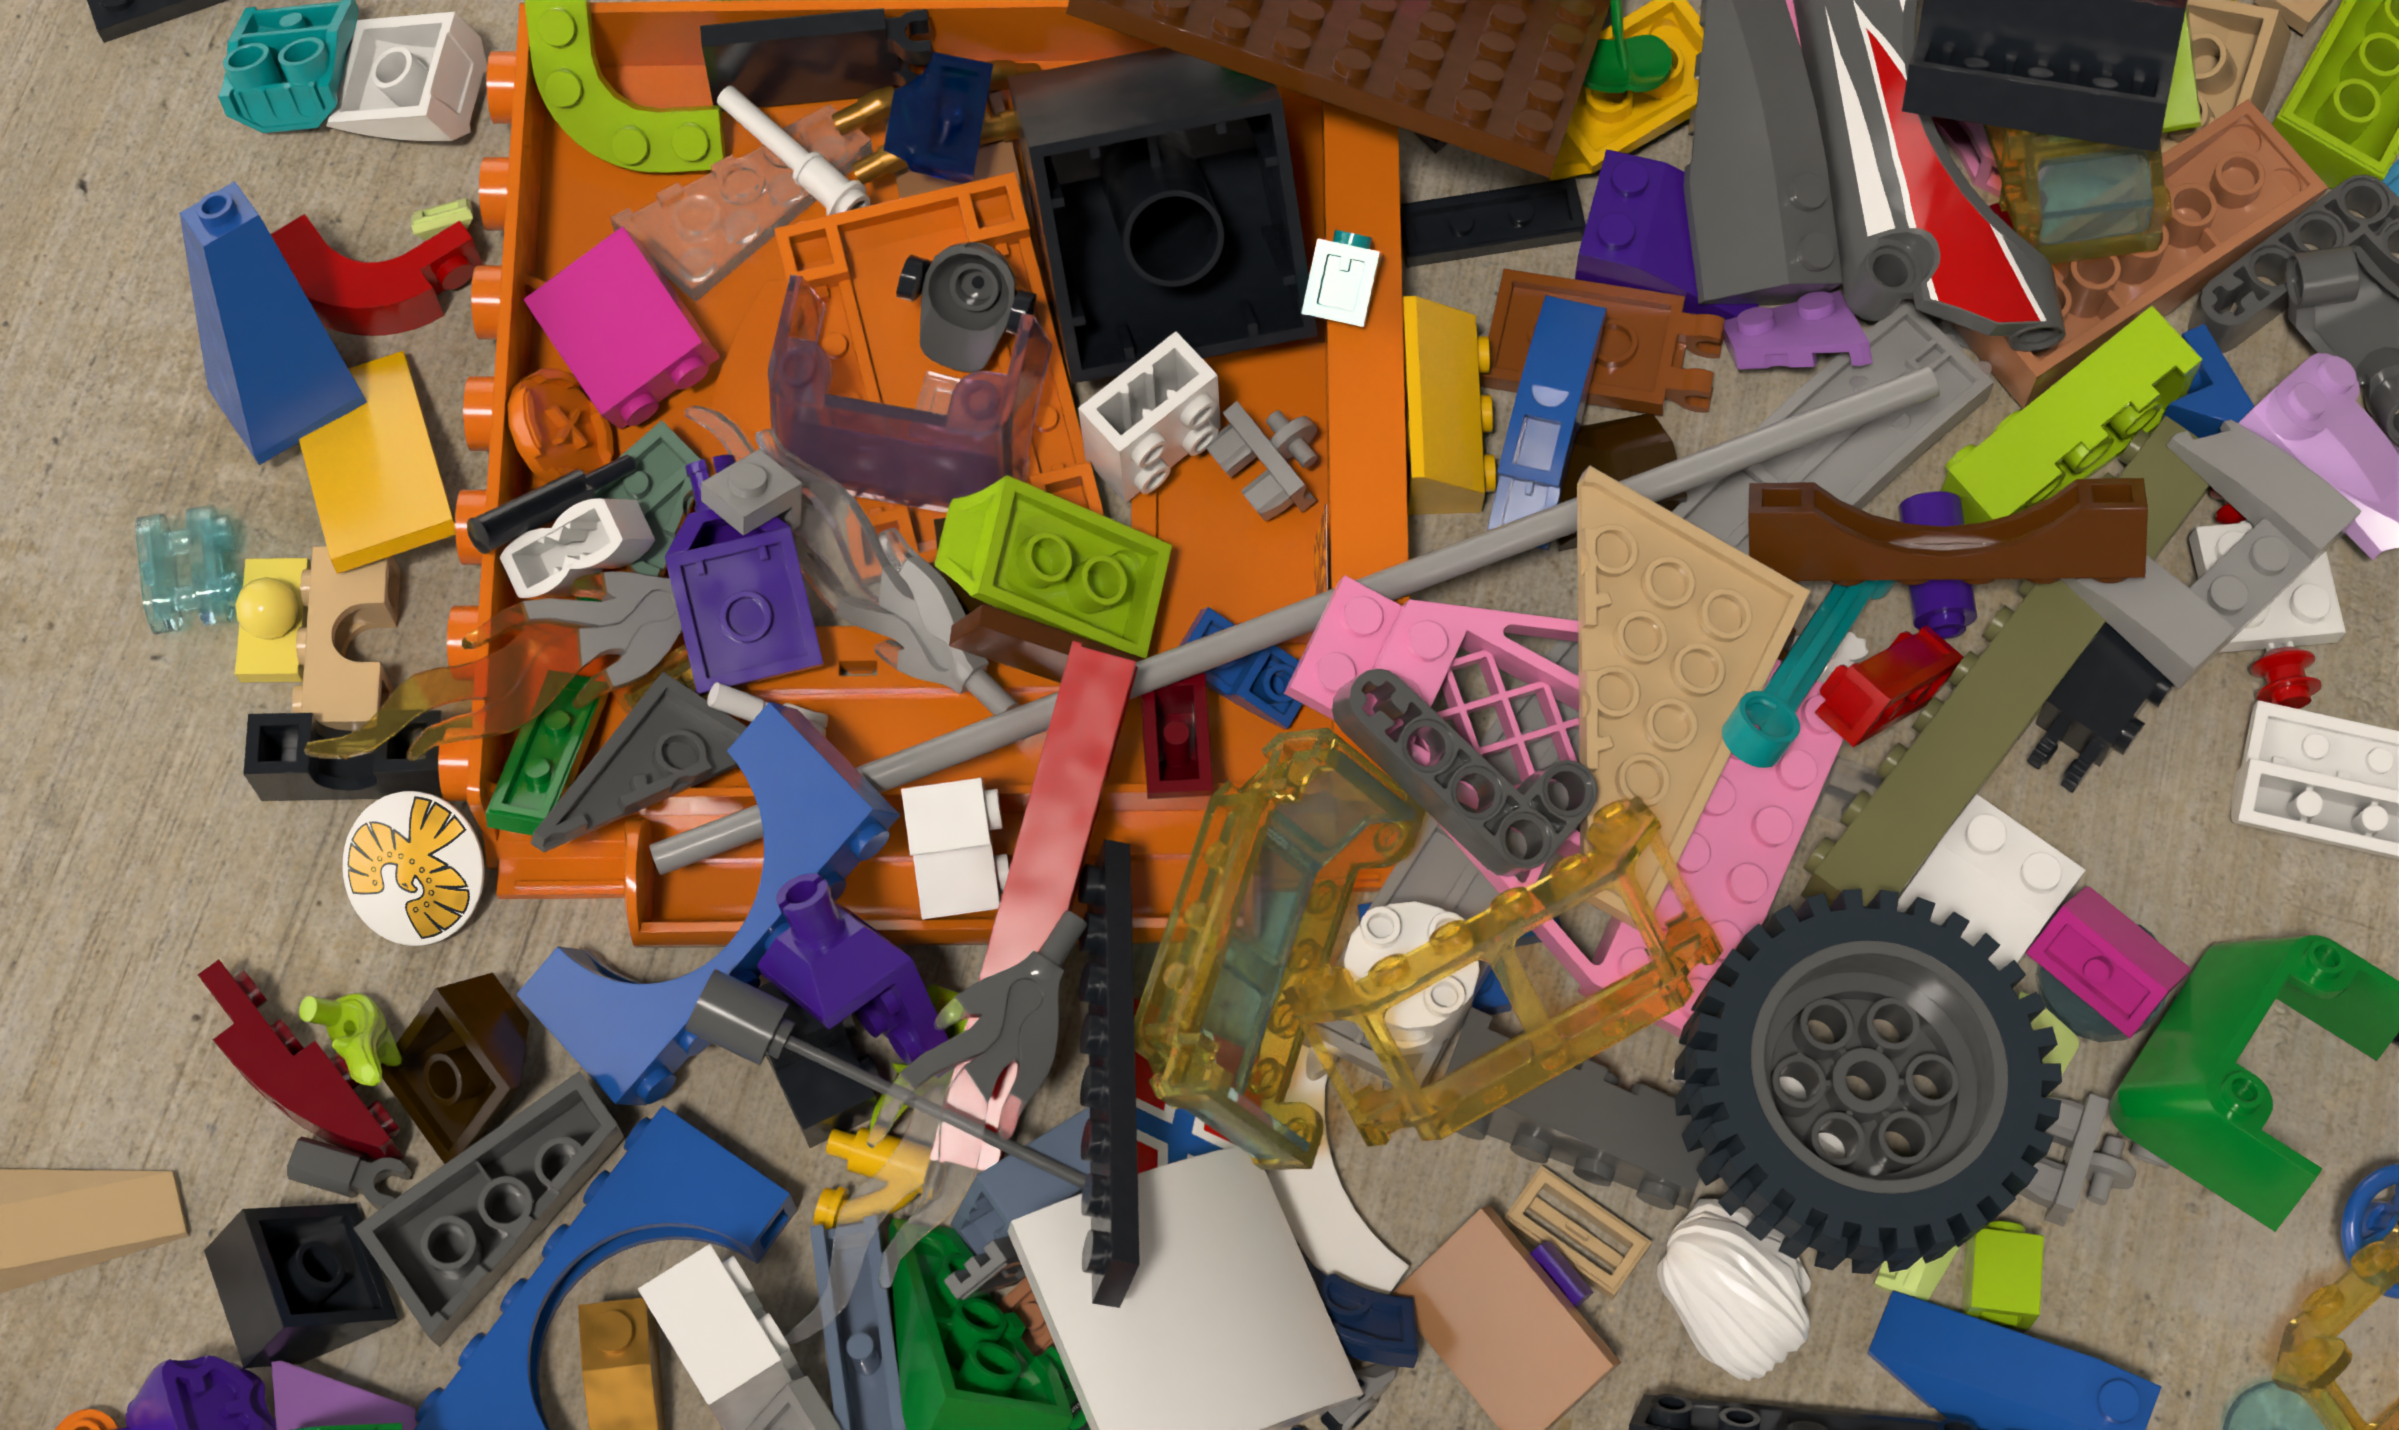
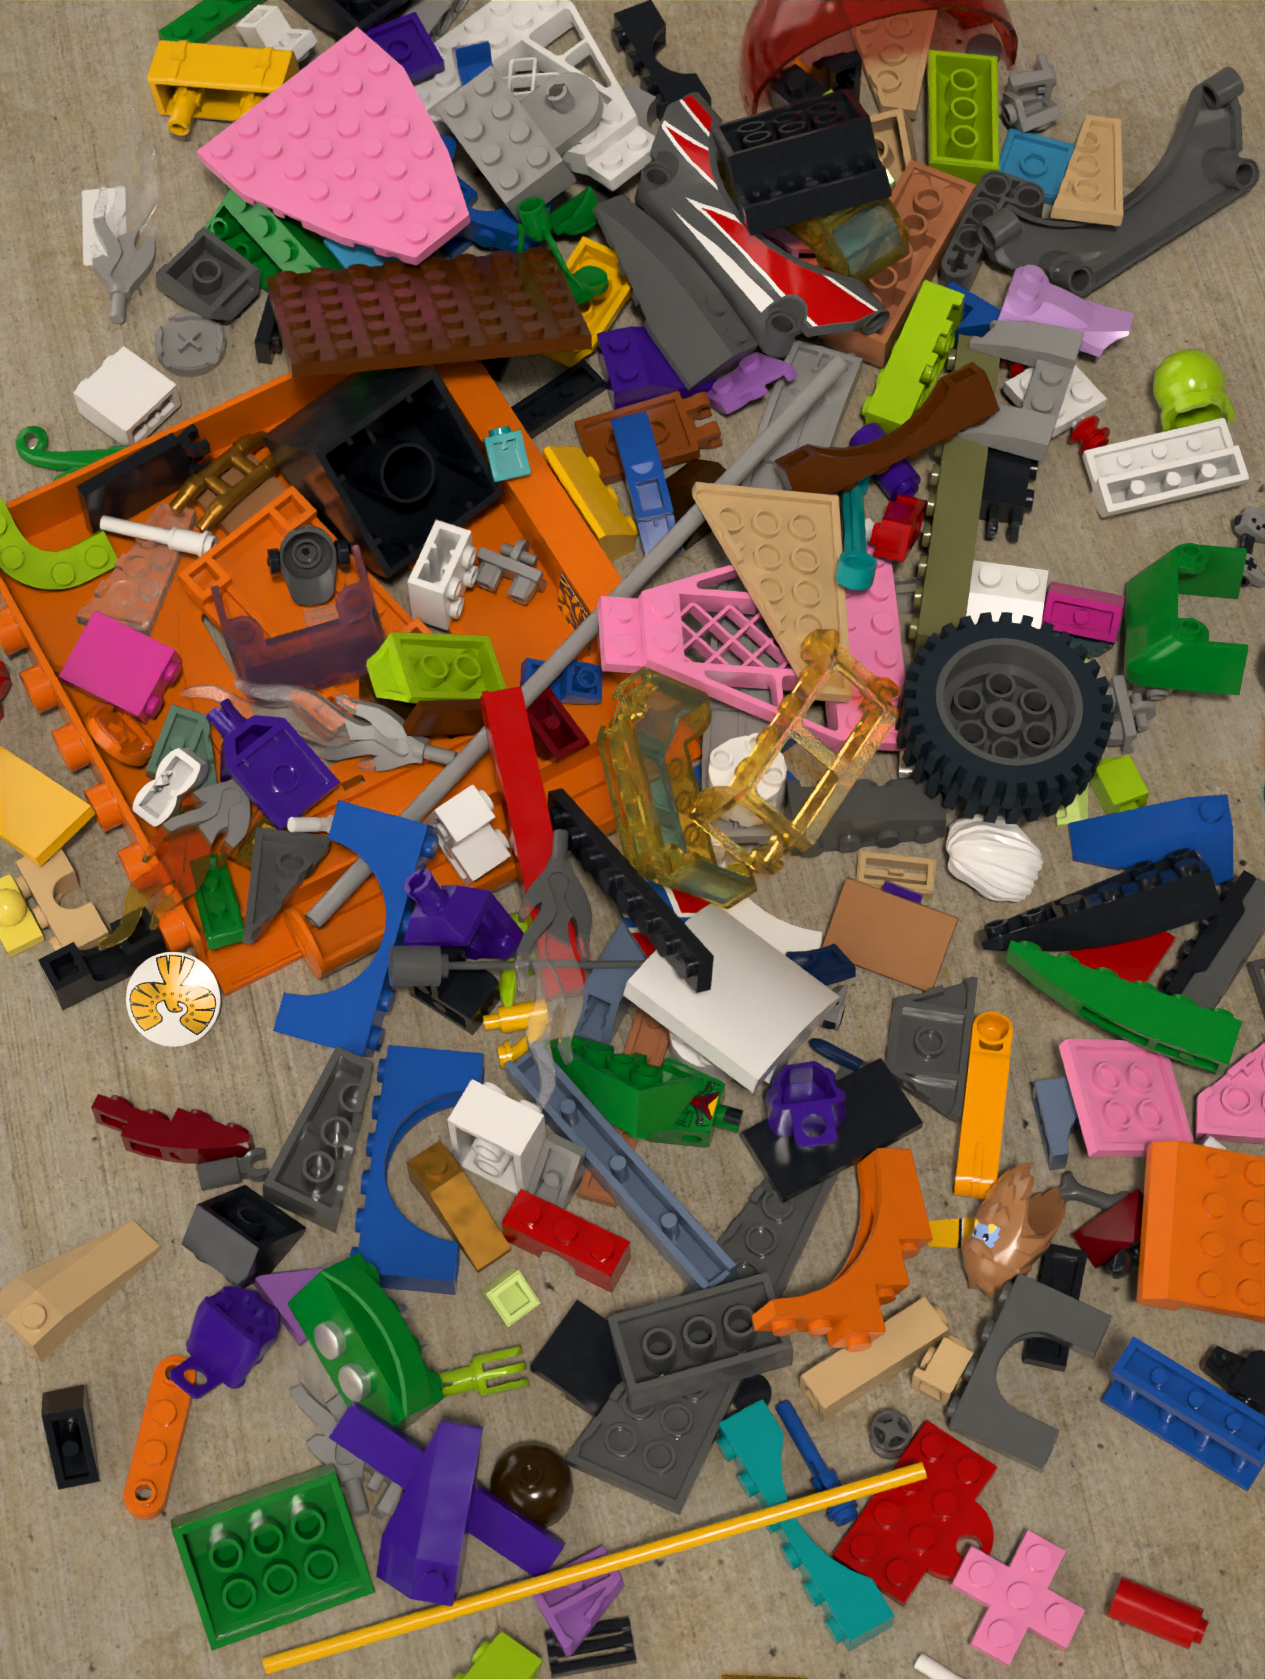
camera: 30 degrees left, 5 degrees down
(356, 1033) = (195, 1093): lime piece -> none
(460, 1062) = (262, 1085): dark brown slope -> none
(542, 504) = (139, 772): black axle -> none
(754, 493) = (254, 709): light grey bracket -> none
(940, 118) = (235, 475): clear blue slope -> none
(987, 1271) = (620, 1028): dark grey tile -> none
(1455, 761) = (662, 641): dark grey beam -> none

